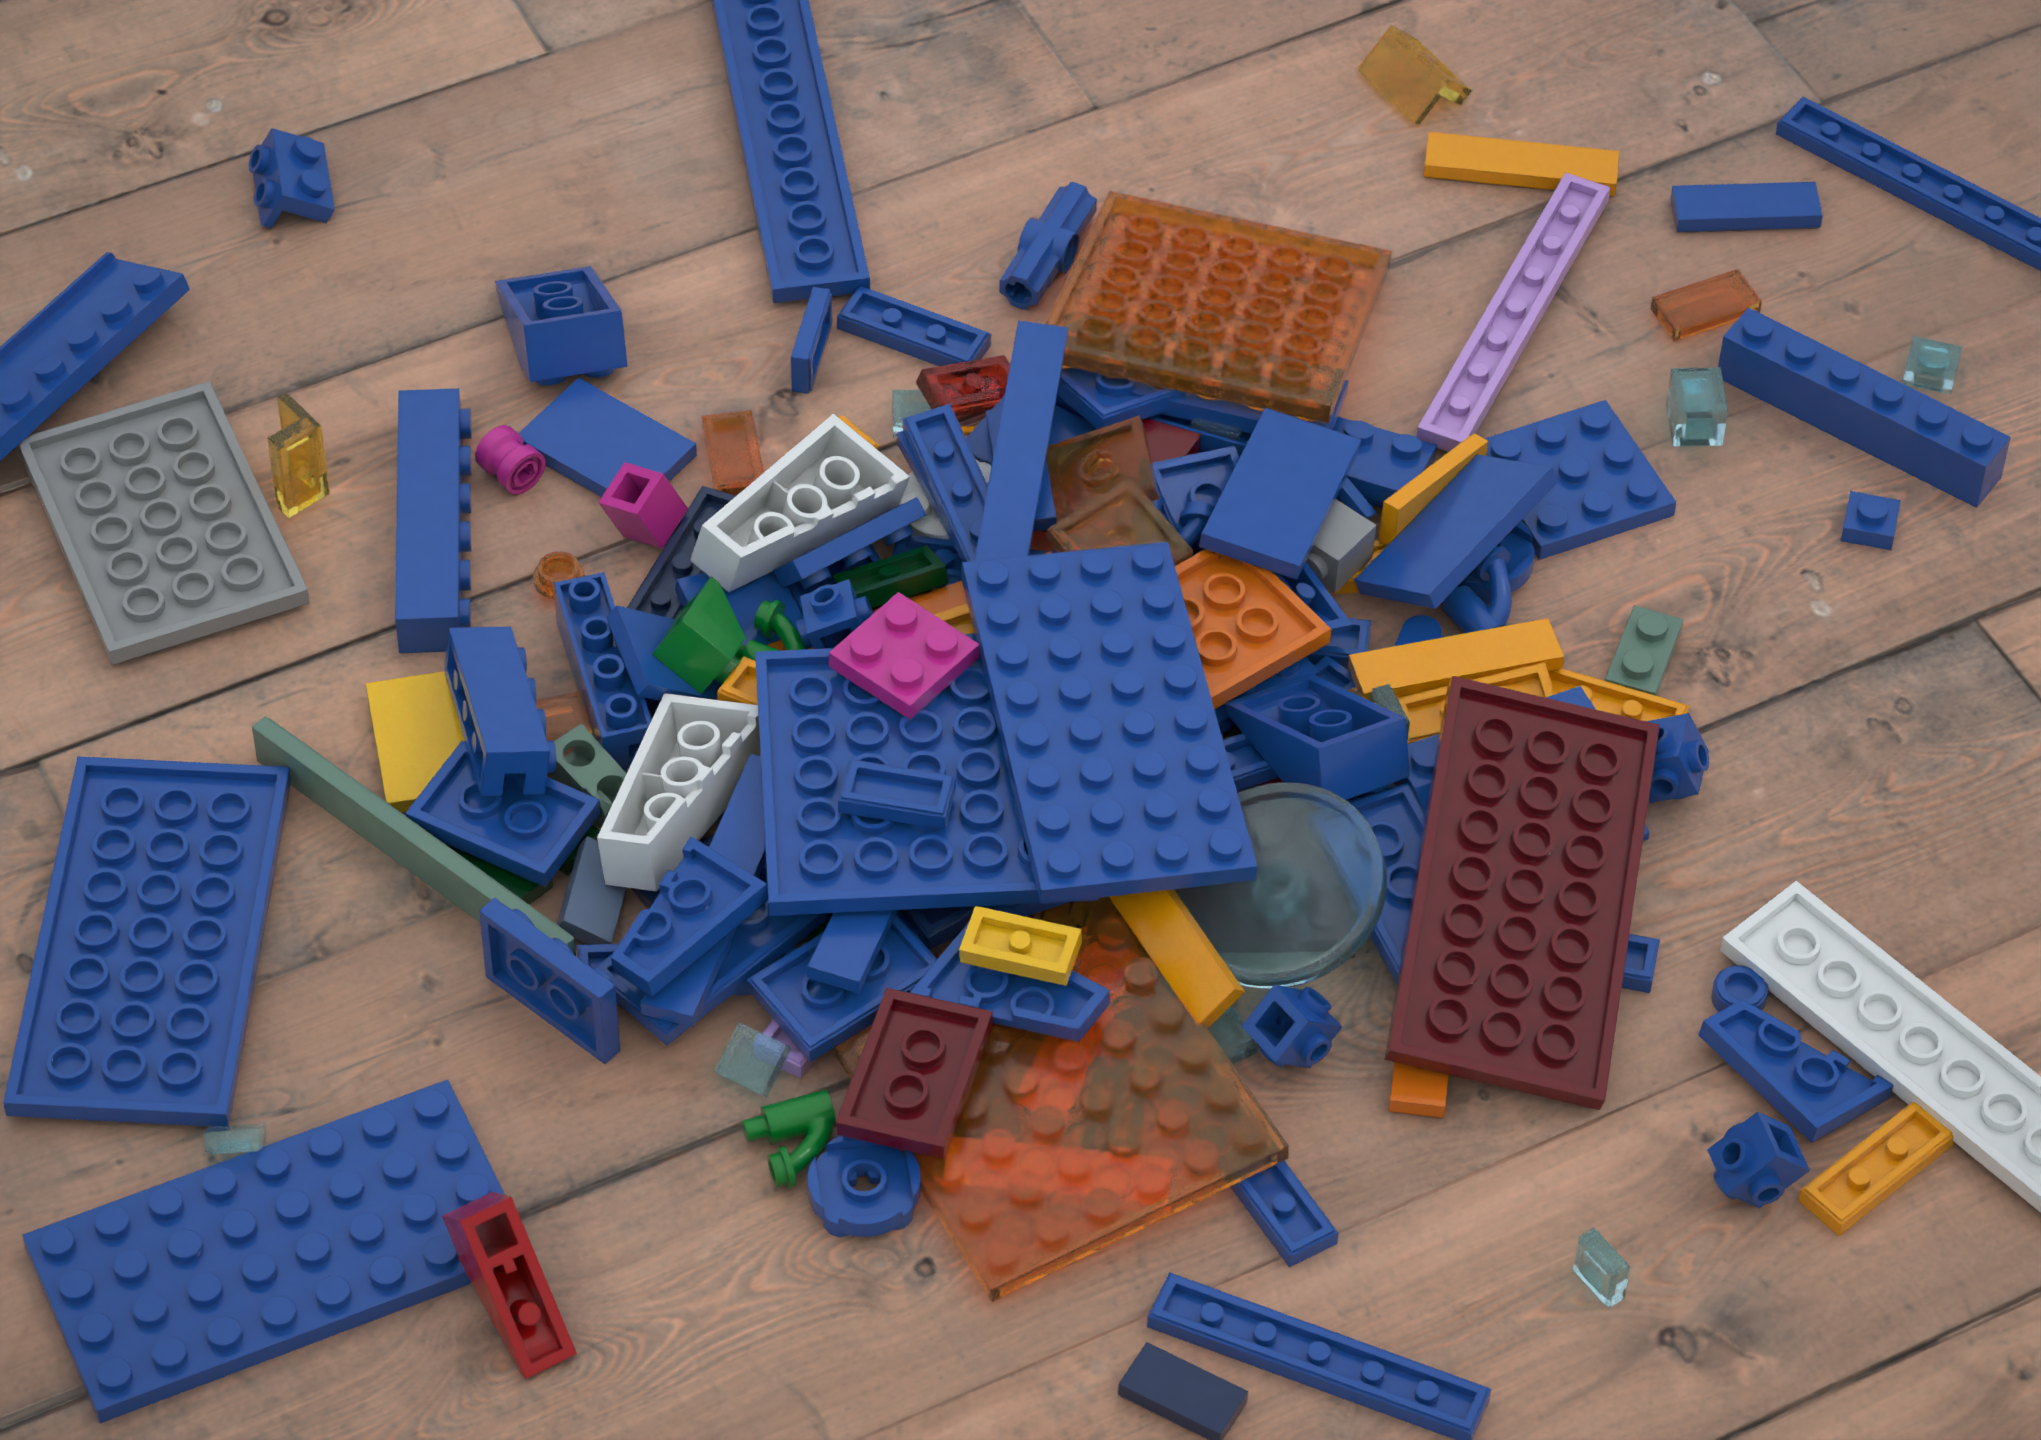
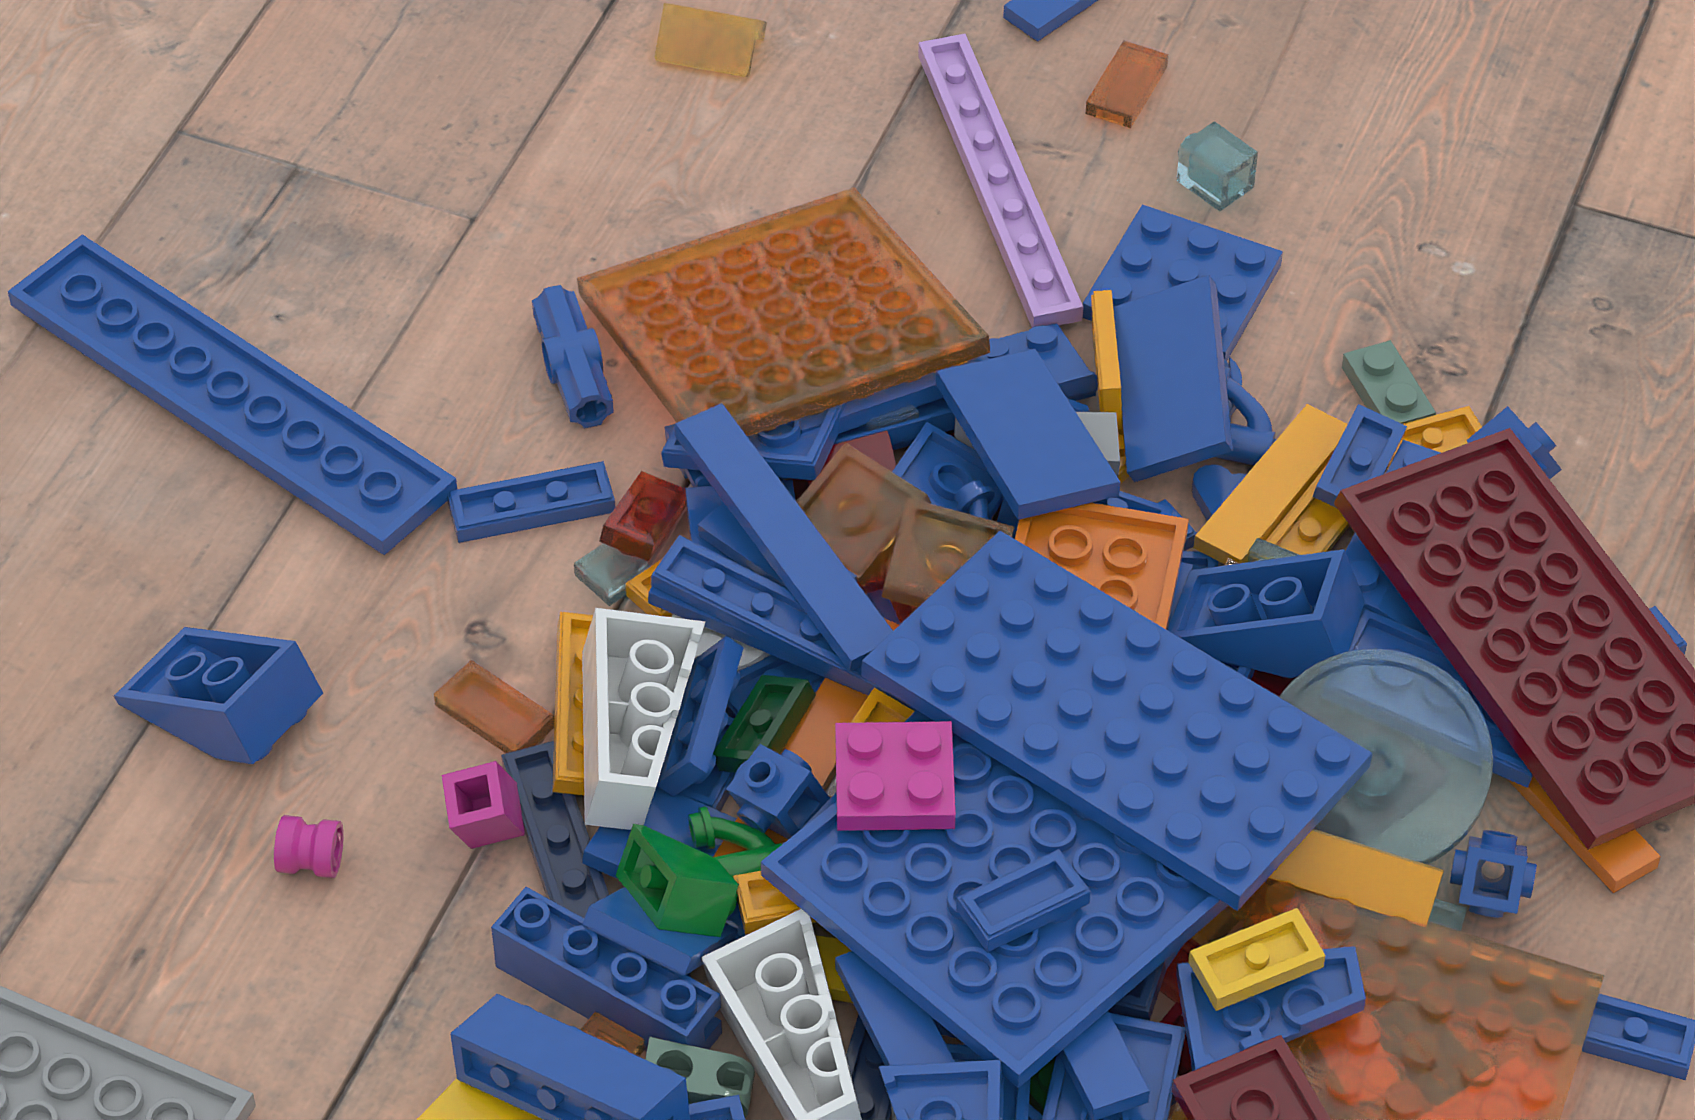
camera: 40 degrees left, 0 degrees up
(297, 458) = (119, 966): clear yellow panel -> none
(430, 519) = (297, 951): blue brick -> none
(554, 568) = (461, 922): clear orange plate -> none
(593, 434) = (372, 774): blue tile -> none
(811, 340) = (462, 564): blue tile -> none
(1516, 162) = (862, 59): light orange tile -> none
(1537, 671) = (1360, 453): none -> blue plate
(1863, 407) = (1337, 88): blue brick -> none
(1870, 520) = (1427, 175): blue plate -> none
(1932, 365) = (1336, 28): clear light blue plate -> none

